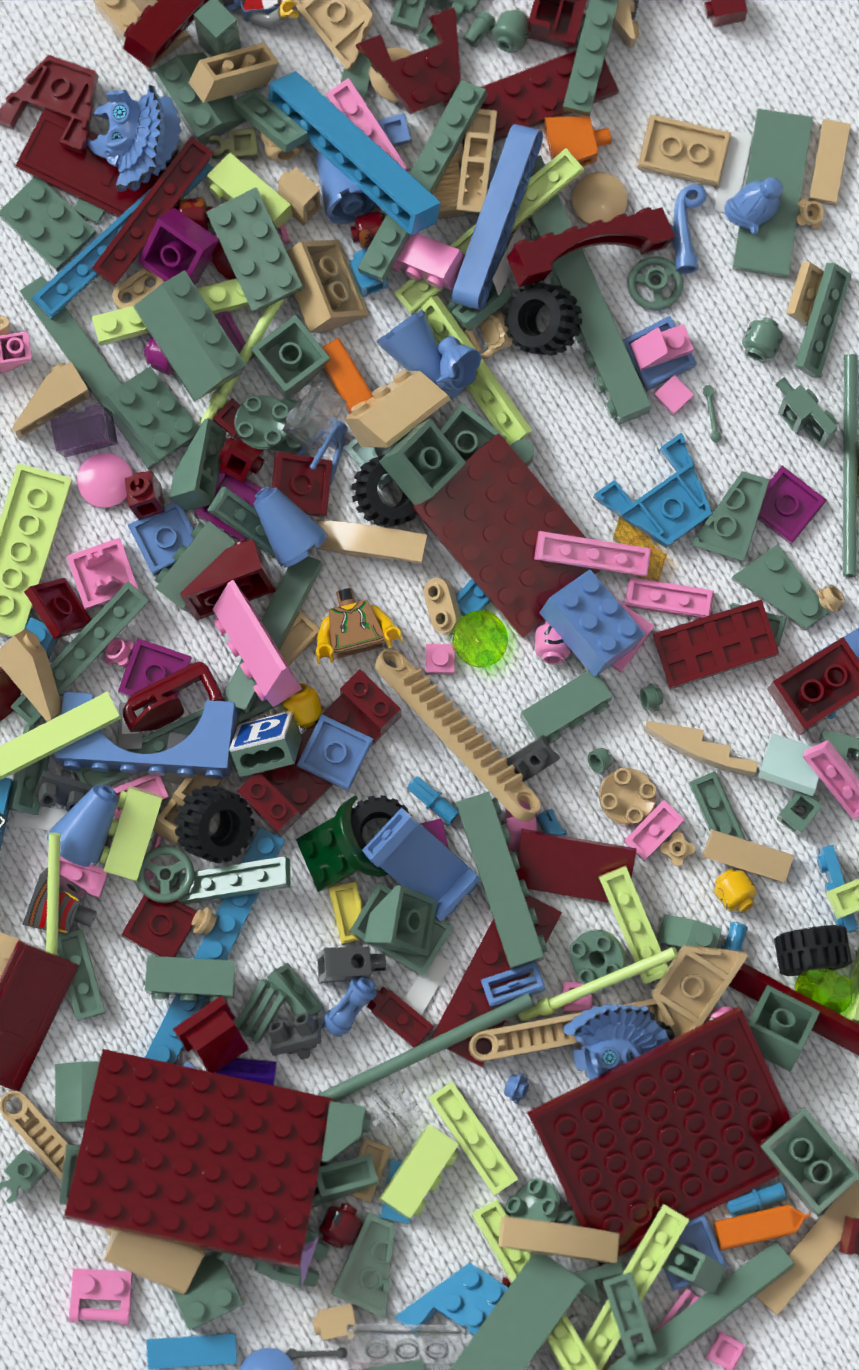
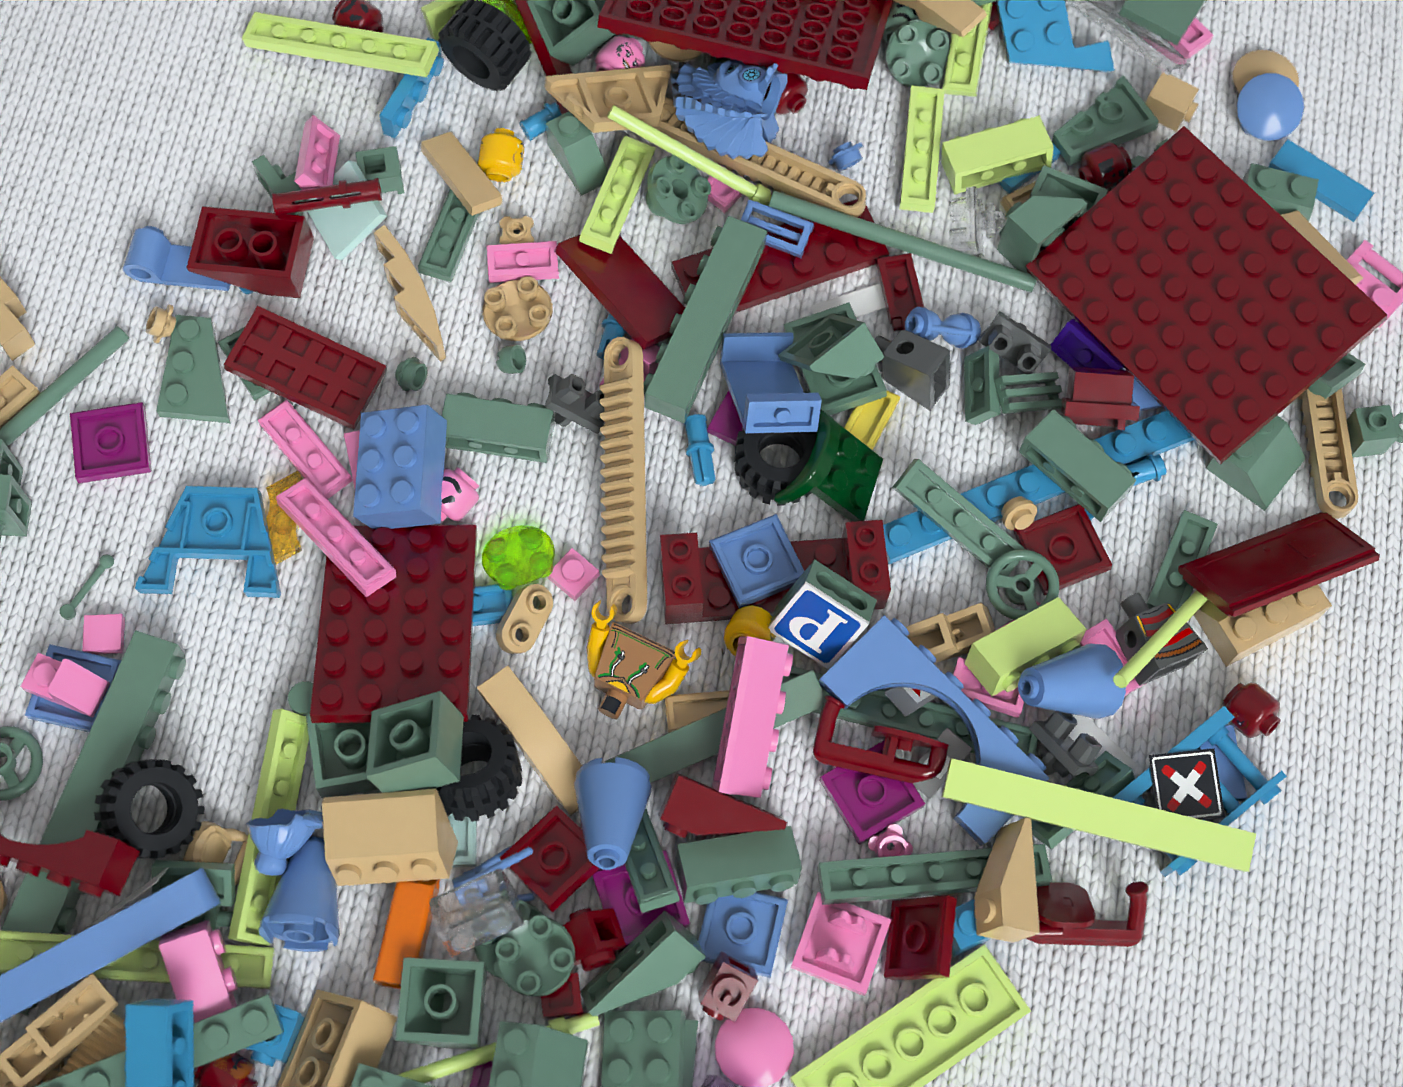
camera: 145 degrees left, 10 degrees down
(150, 1020) = (1148, 469): none -> dark azure pin
(232, 830) = (938, 582): black tyre -> none
(341, 1353) = (1228, 114): dark grey hinge -> none
(735, 518) = (169, 463): sand green wing -> none
(792, 758) = (284, 202): none -> dark red pin

